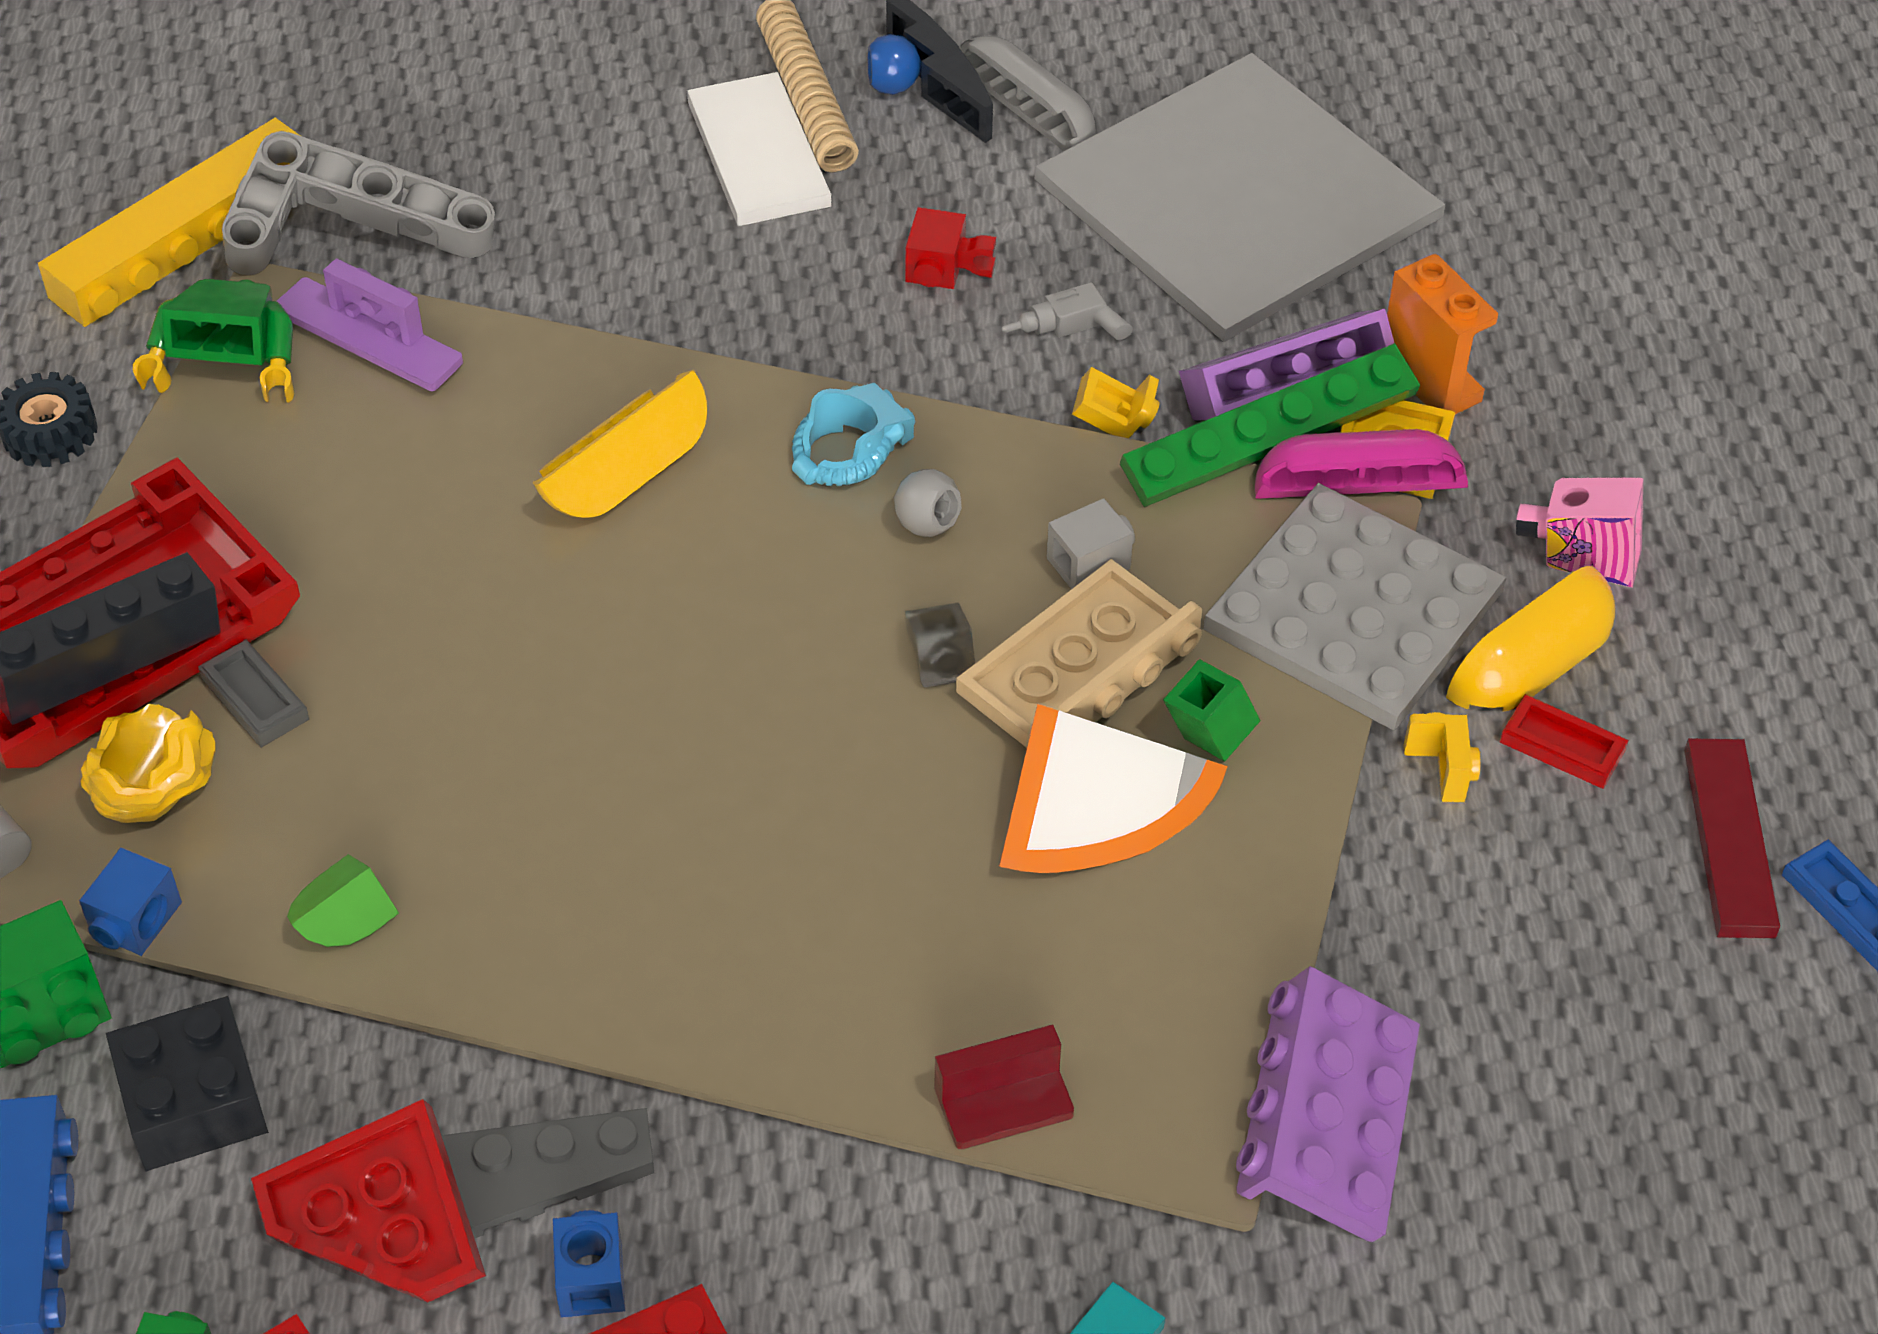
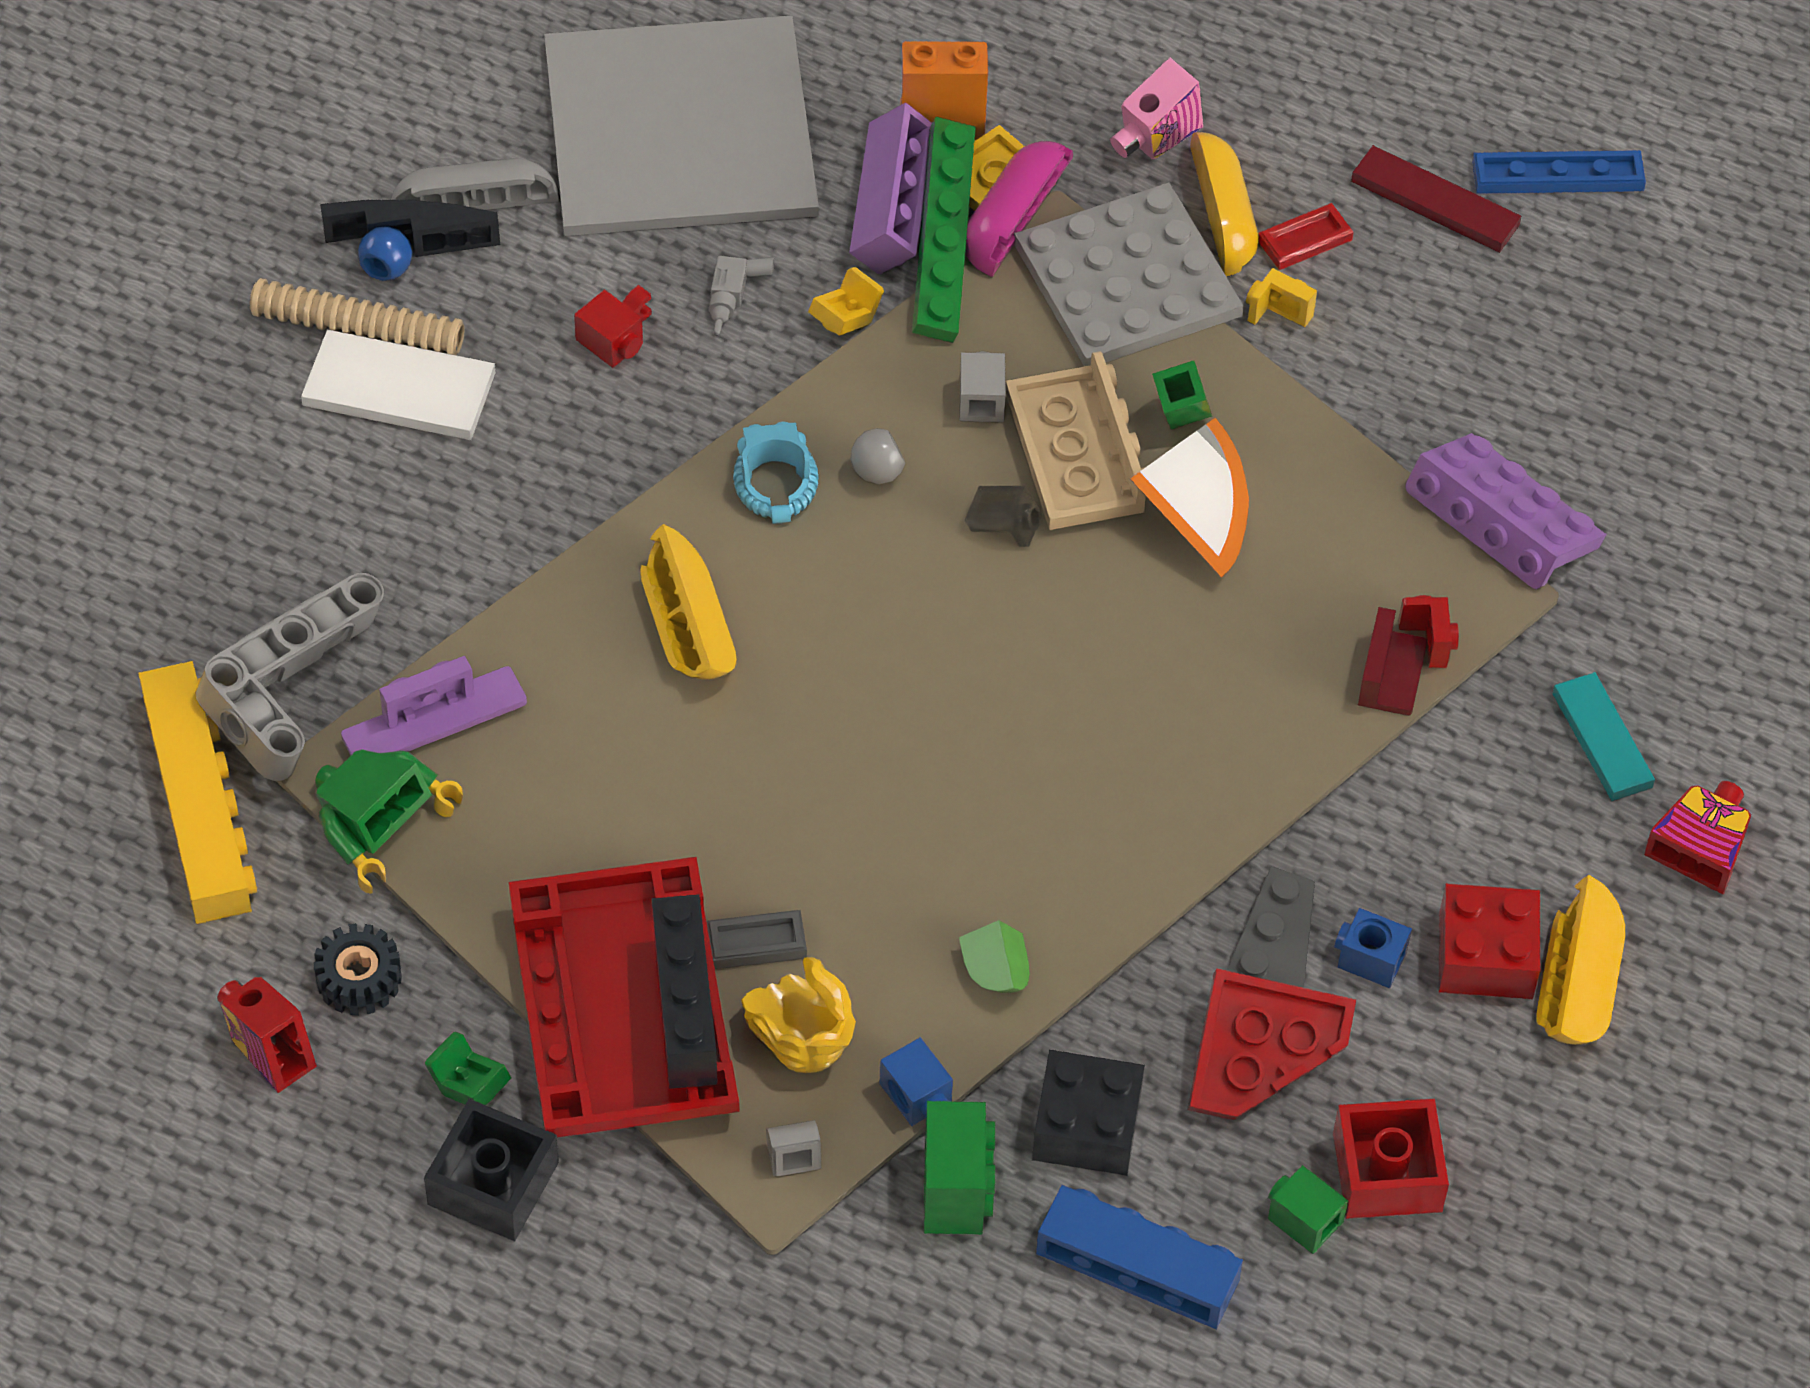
camera: 60 degrees left, 5 degrees up
(1085, 1109) = (1433, 617): none -> red bracket

